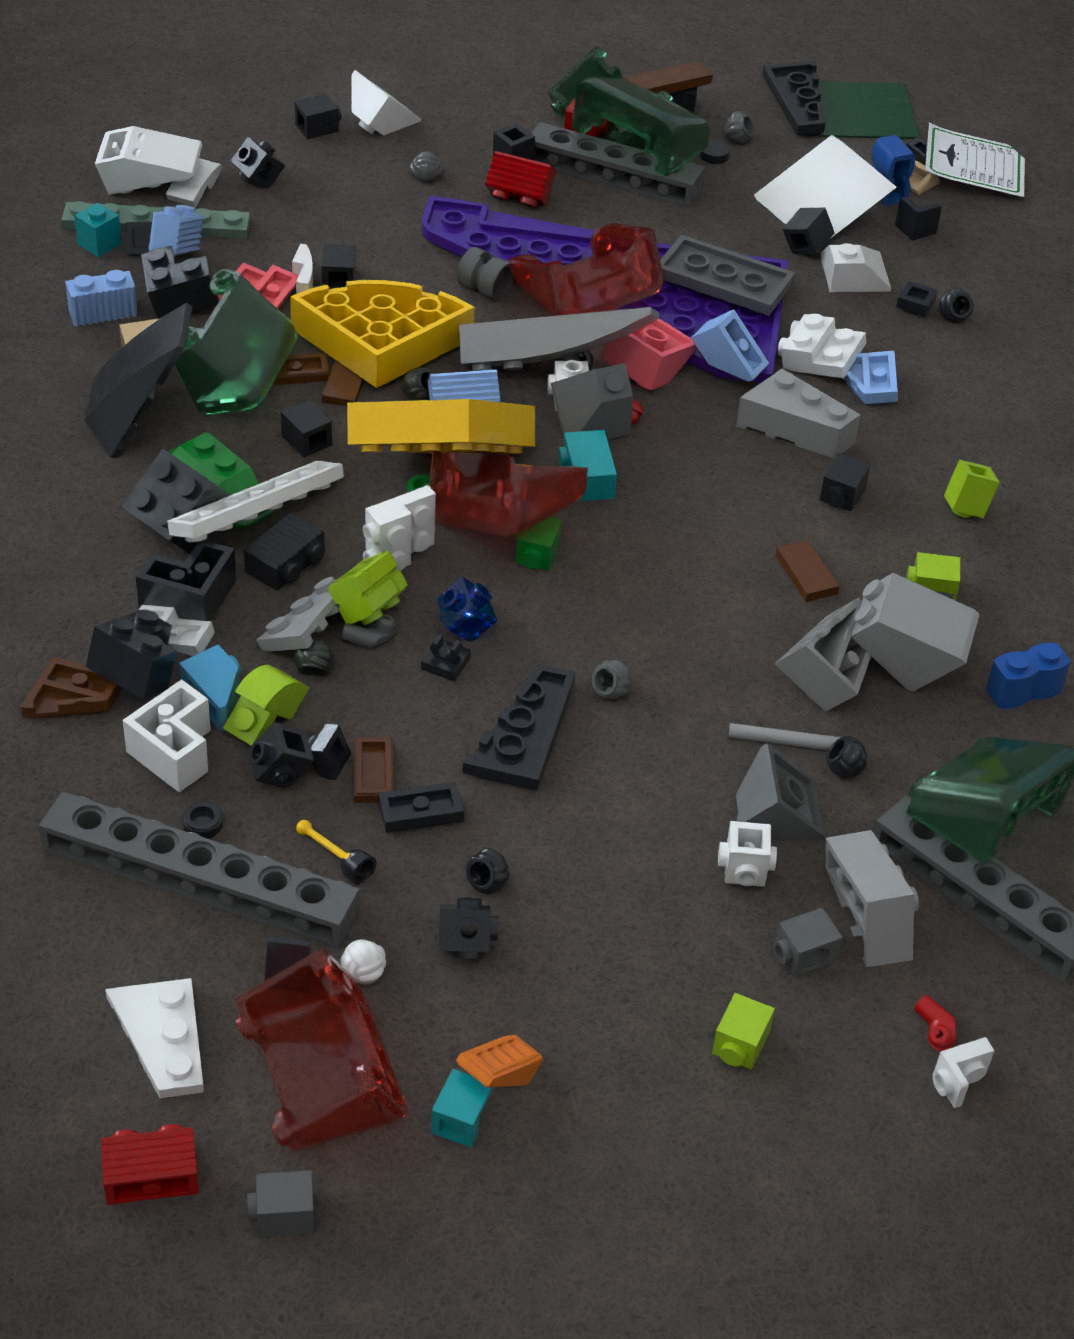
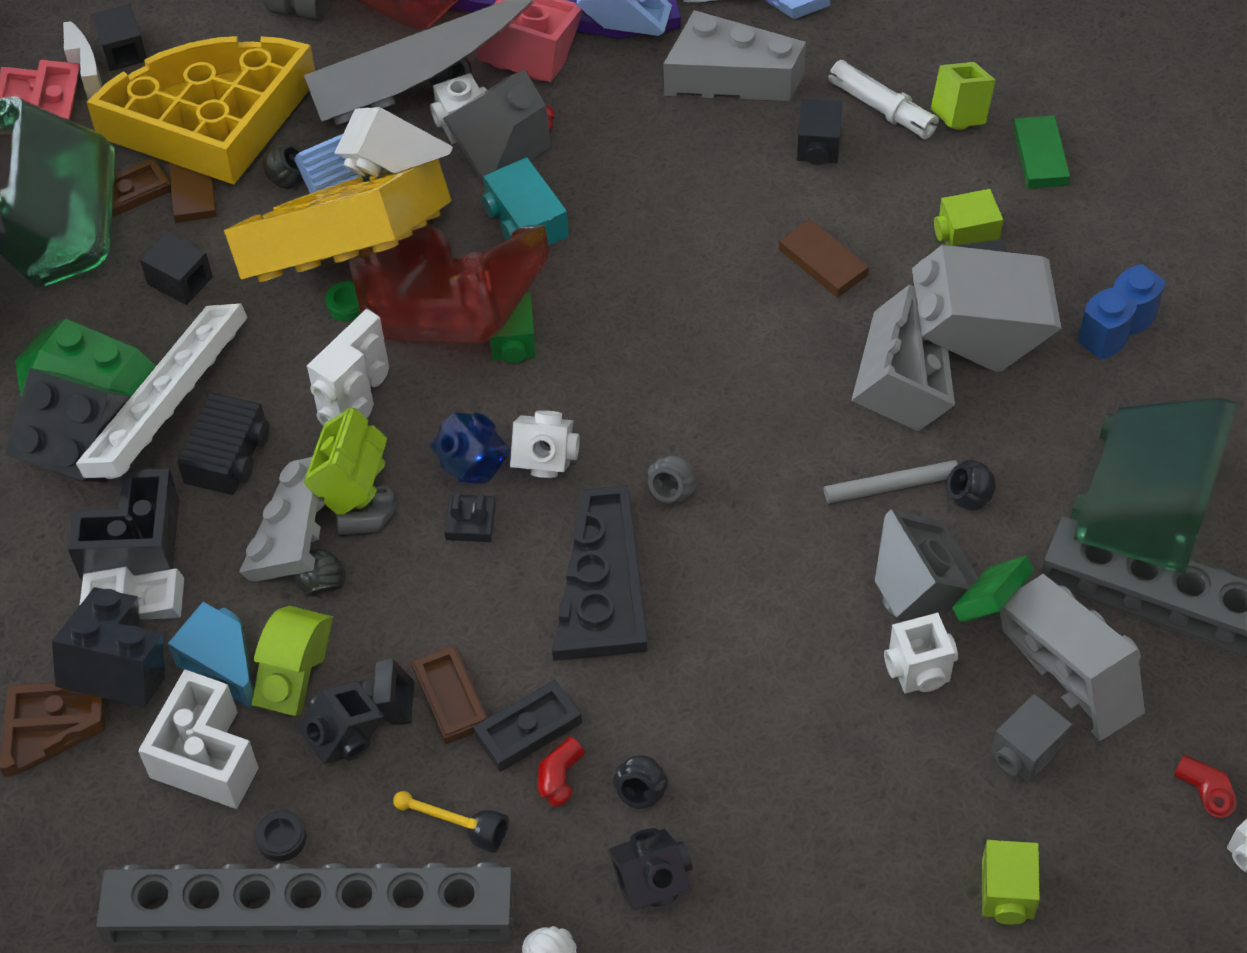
camera: 15 degrees left, 10 degrees up
(429, 841) = (553, 772): none -> red arm
(498, 381) = (386, 144): none -> white slope
(523, 624) = (530, 451): none -> white brick
(826, 828) = (993, 589): none -> green tile
(914, 484) = (893, 105): none -> white pin
(1020, 550) = (1041, 152): none -> green tile

